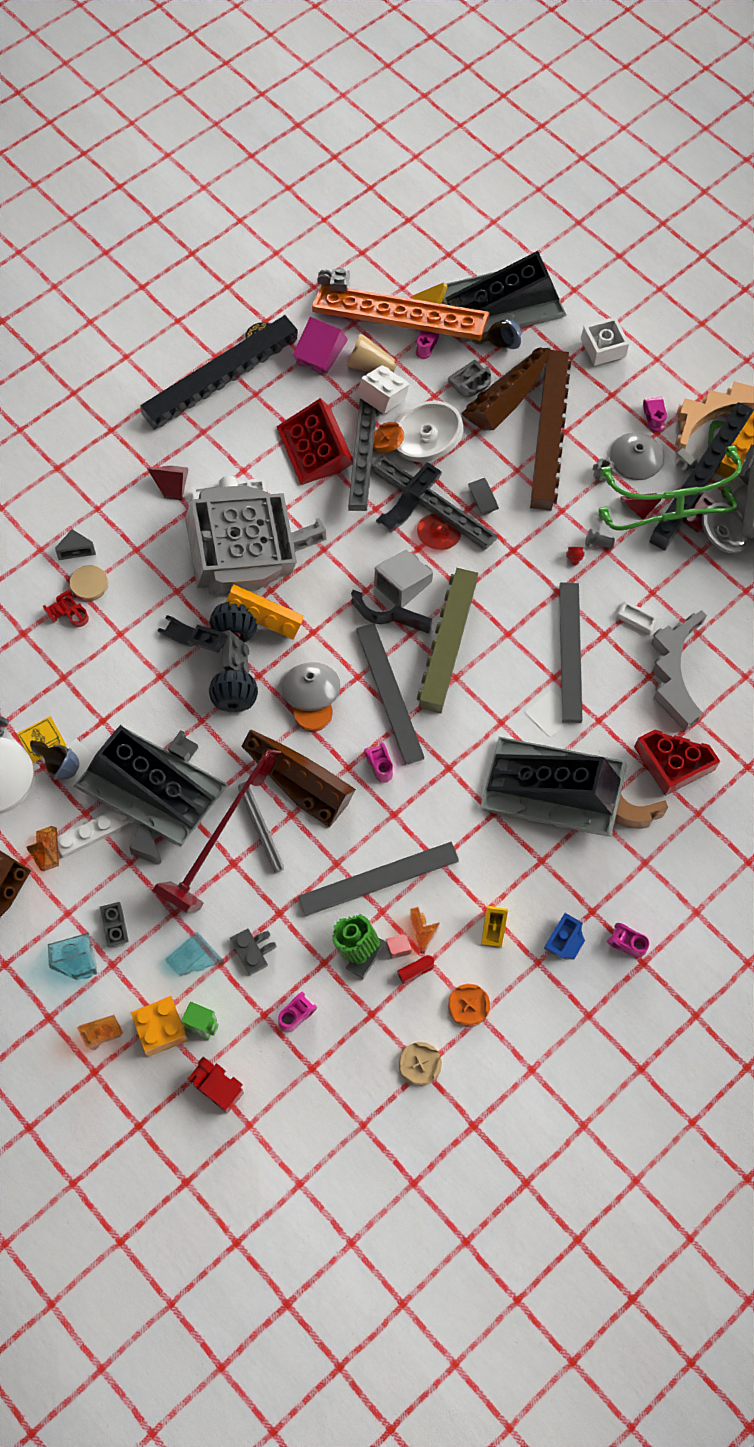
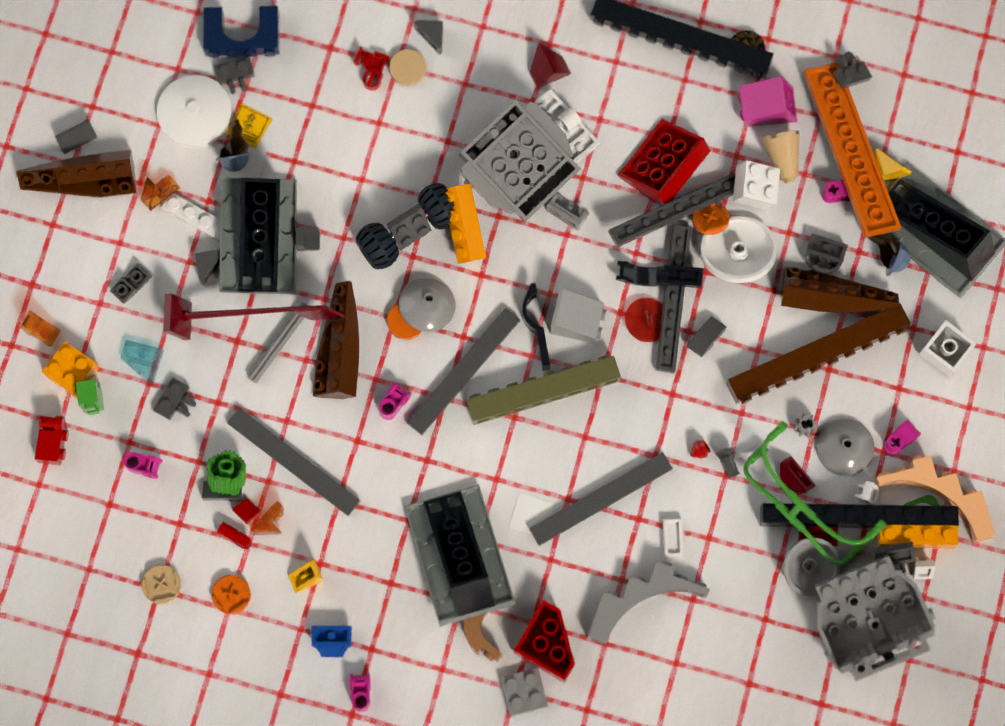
camera: 60 degrees right, 10 degrees up
(73, 957) = (85, 270): clear light blue slope -> none
(189, 636) = (410, 179): black piece -> none
(705, 806) = (524, 692): none -> light grey plate

